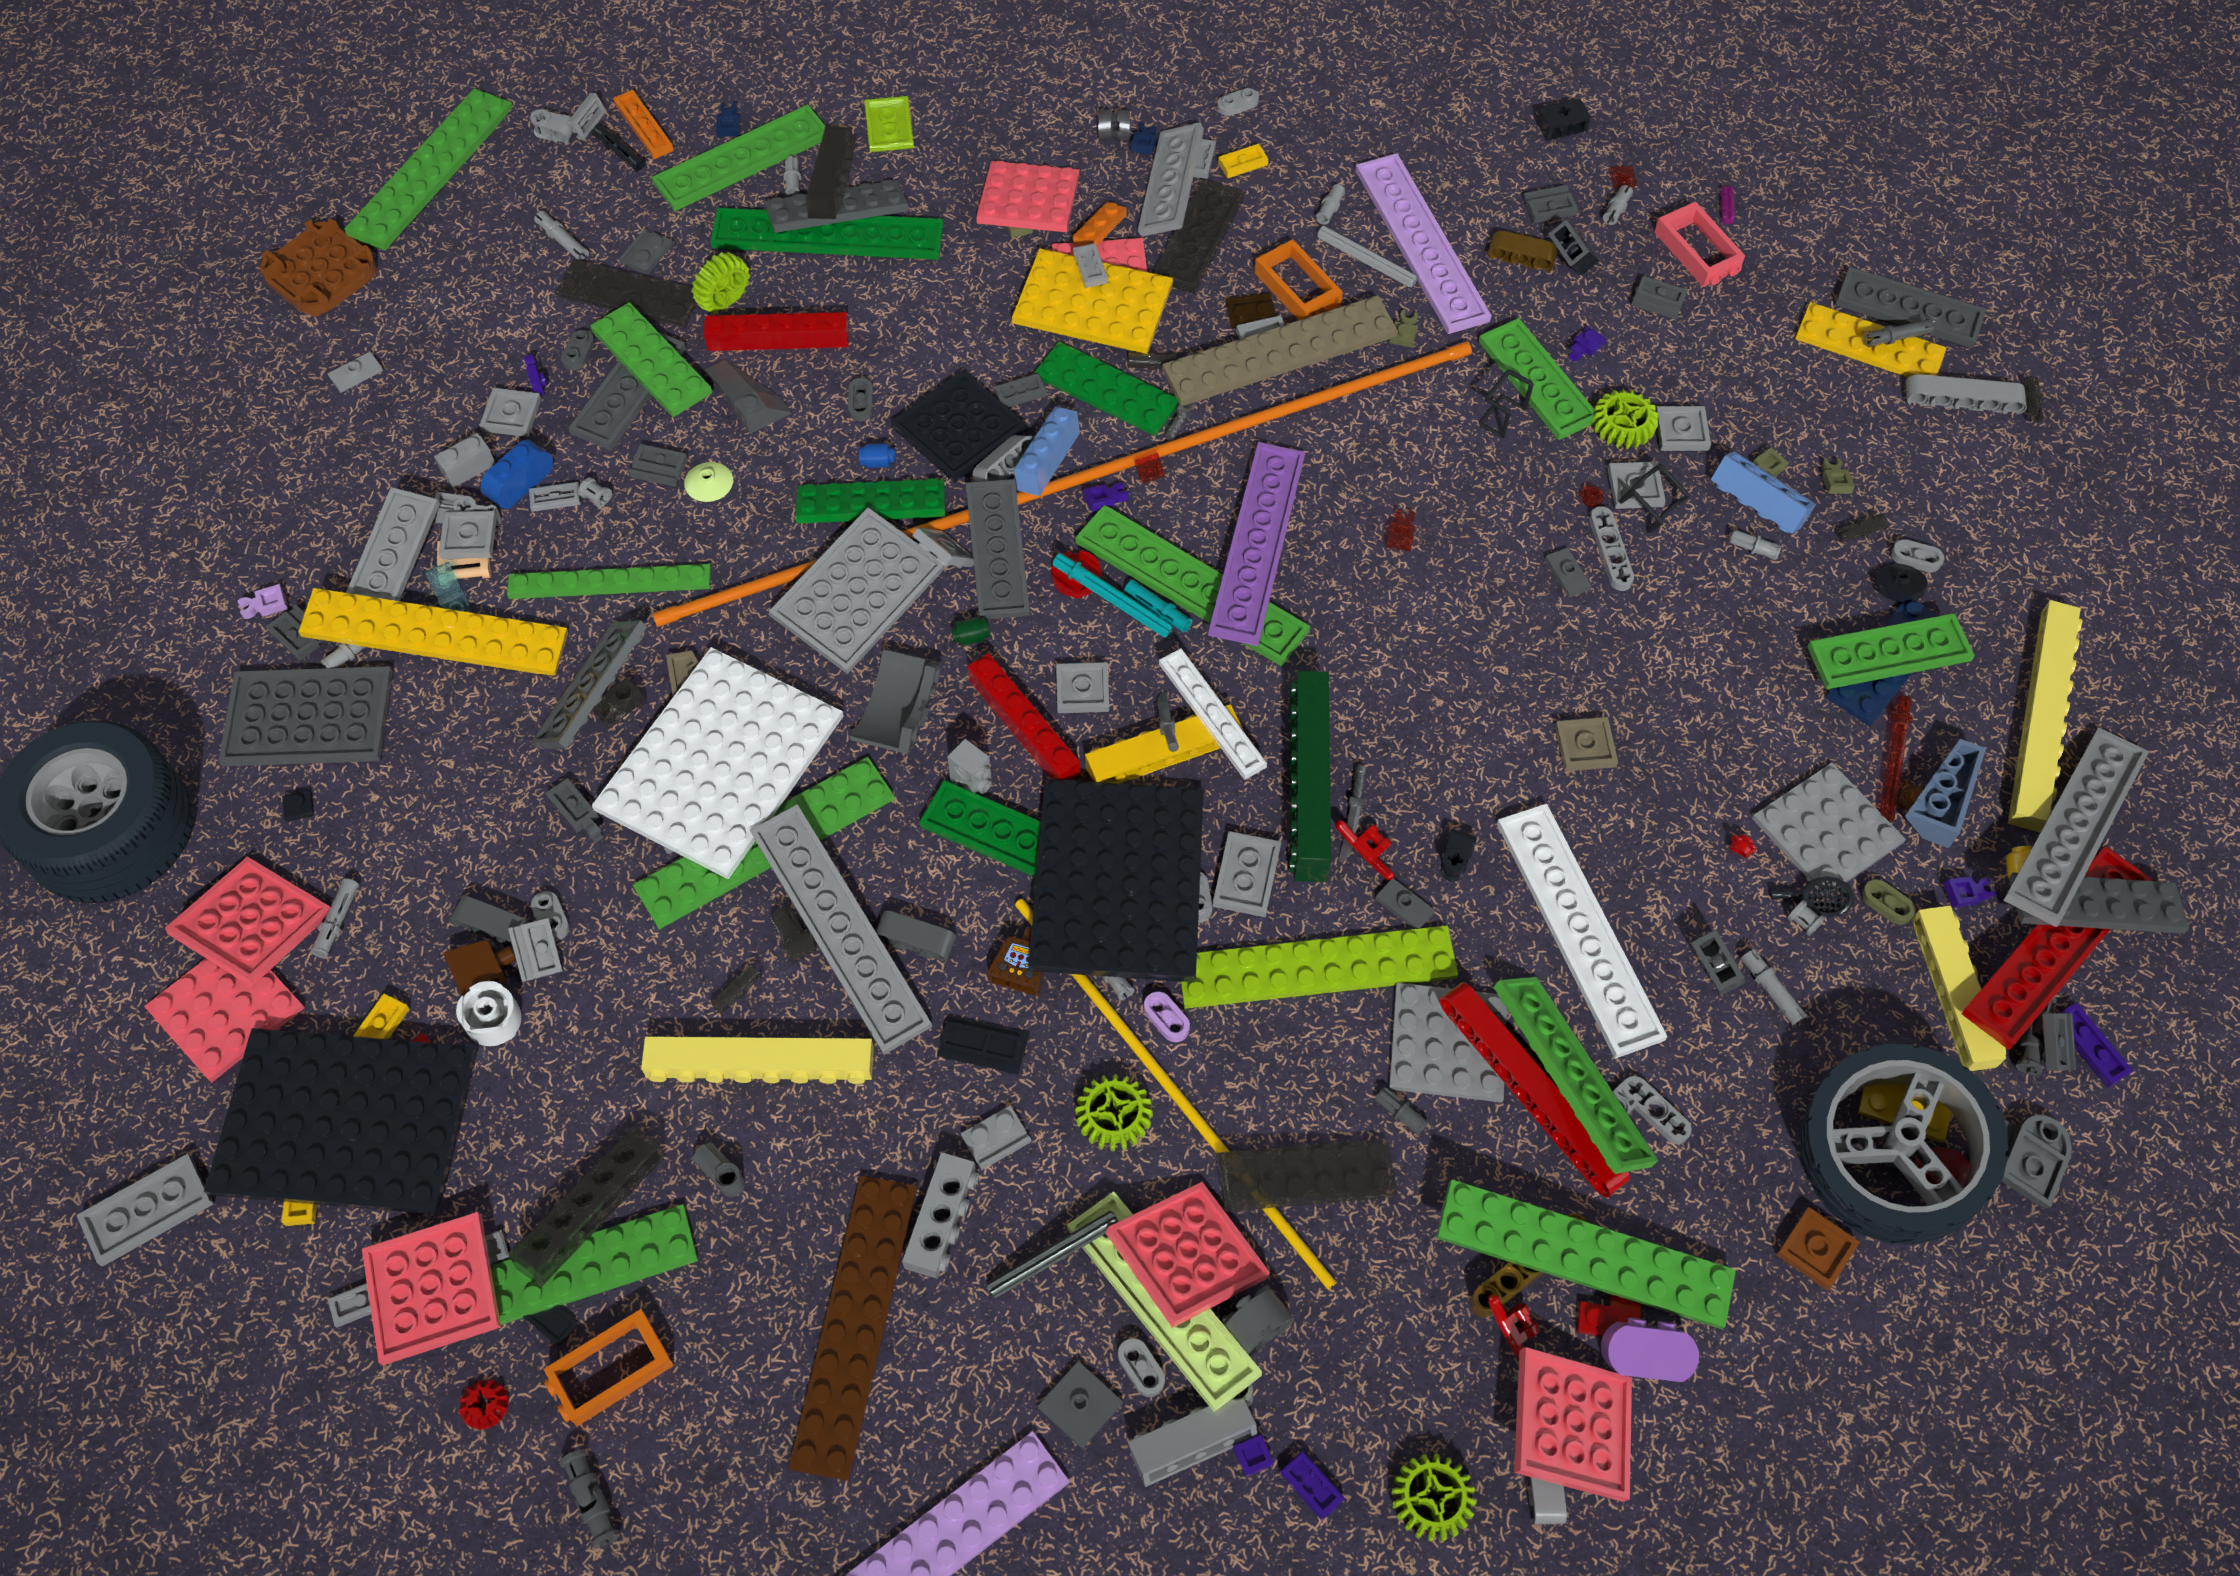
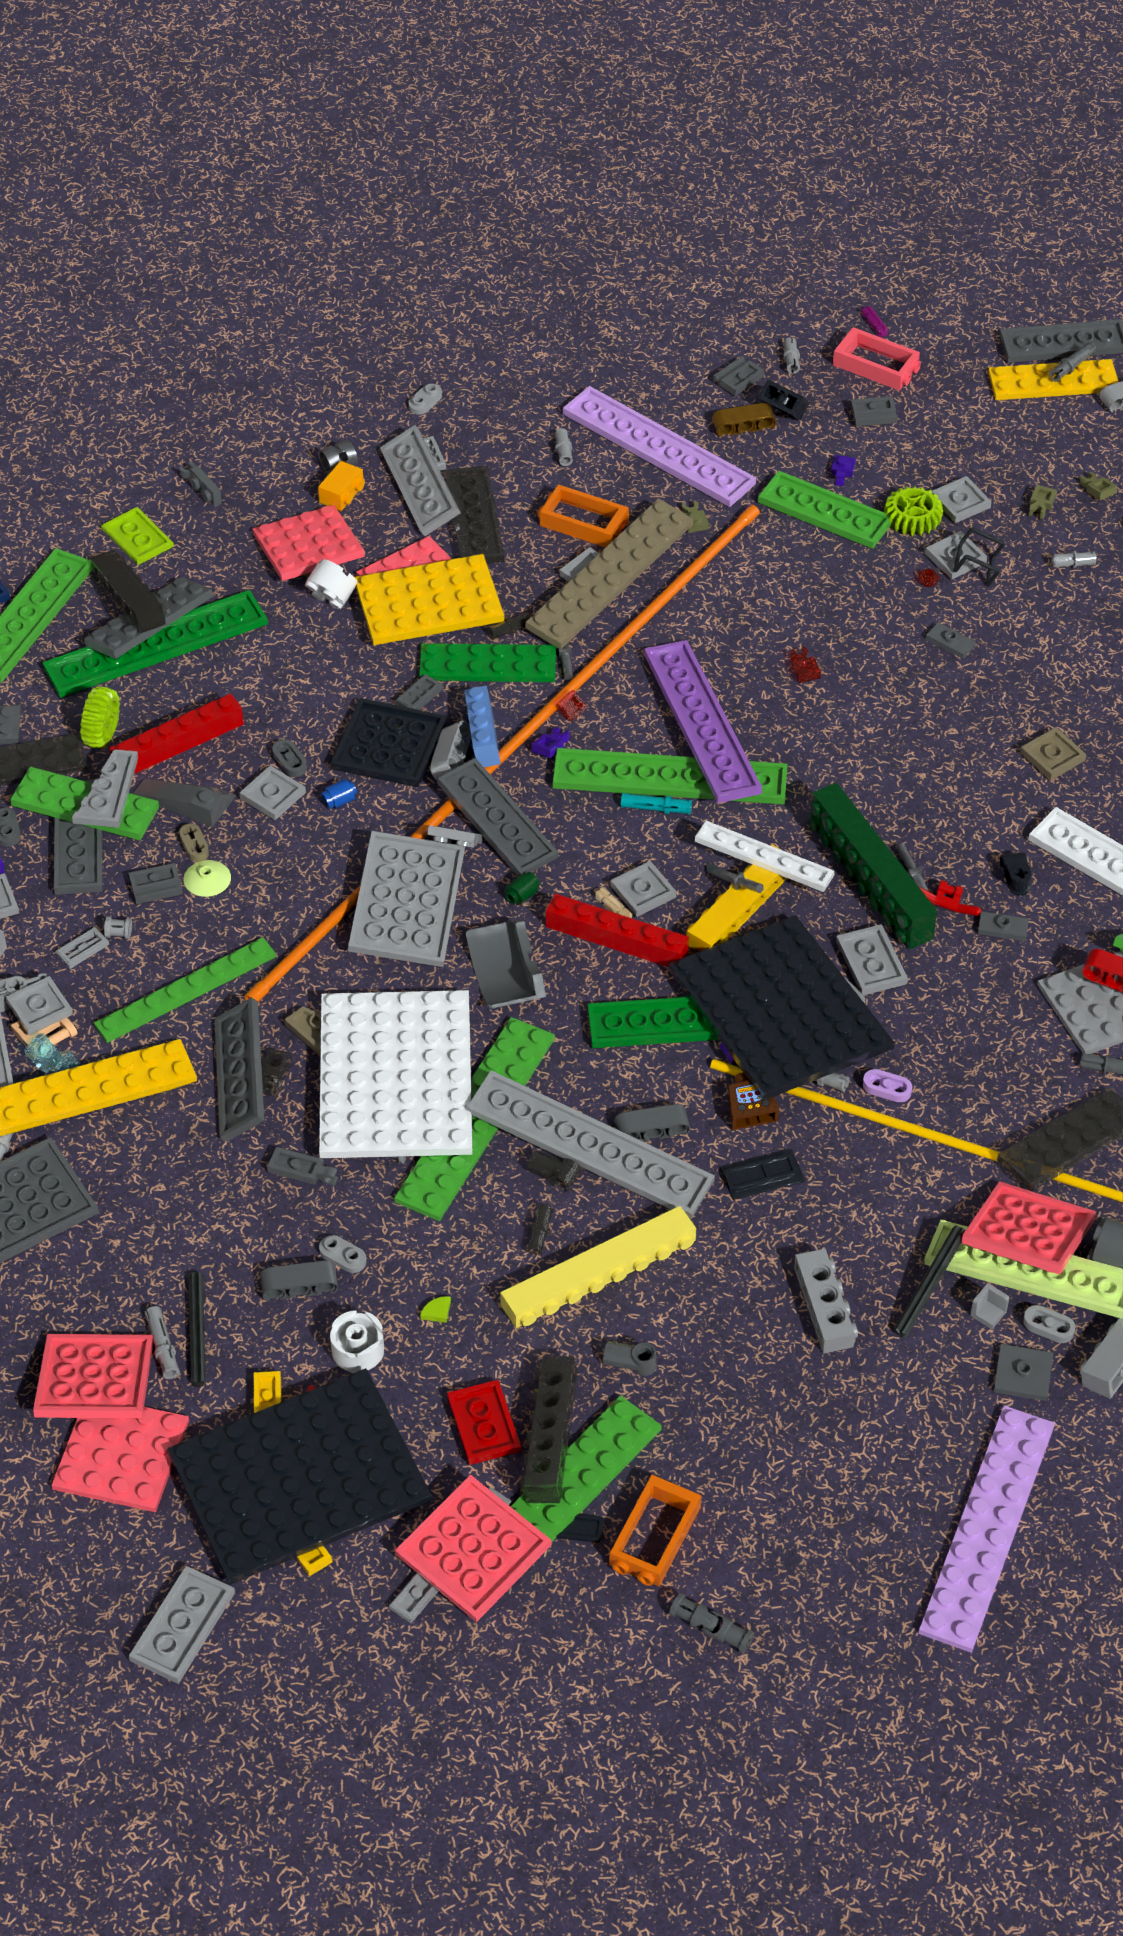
camera: 30 degrees left, 10 degrees down
(297, 805) = (55, 1279): black plate -> none
(374, 922) = (197, 1329): none -> pearl dark grey axle
(478, 964) = (314, 1316): reddish brown torso -> none
(494, 1411) = (575, 1621): red gear -> none
(516, 473) = (40, 941): blue brick -> none
(535, 950) = (355, 1279): light grey plate -> none
(543, 1159) = (483, 1422): none -> red plate
(589, 1019) = (437, 1310): none -> lime tile
(669, 359) = (109, 793): none -> light grey wing
(725, 442) = (189, 843): none -> dark tan beam
(792, 176) = (86, 611): light grey axle -> none
(821, 426) = (272, 792): none -> light grey plate
(853, 1330) = (818, 1410): reddish brown plate -> none
(887, 499) = (354, 832): green plate -> none
(970, 768) = (606, 981): light grey brick -> none
(976, 96) = (203, 483): none -> dark grey plate
(995, 1137) = (822, 1230): light grey plate -> none
(1013, 245) = (331, 583): none -> white brick
(1044, 691) = (611, 902): none -> tan axle
(1073, 587) = (572, 820): red plate -> none
(1090, 265) = (412, 570): light grey plate -> none
(1093, 1314) = (989, 1306): none -> light grey panel
(1096, 153) = (341, 485): none -> light orange brick
(1100, 224) = (387, 540): orange plate -> none
(1104, 1116) = (901, 1176): lime gear -> none
(1111, 594) = (616, 810): teal axle -> none
(1144, 140) = (371, 460): dark blue plate -> none
(1243, 161) = (466, 442): yellow plate -> none
(1249, 309) = (558, 554): dark brown plate -> none
(1321, 966) = (974, 997): lime plate -> none
(1367, 256) = (625, 475): light grey axle -> none
(1496, 404) = (817, 536): black piece -> none
(1563, 119) = (702, 307): black brick -> none
(1615, 548) = (973, 607): light grey beam -> none
(1623, 176) = (779, 332): clear red plate -> none
(1762, 492) = (1054, 518): medium blue brick -> none

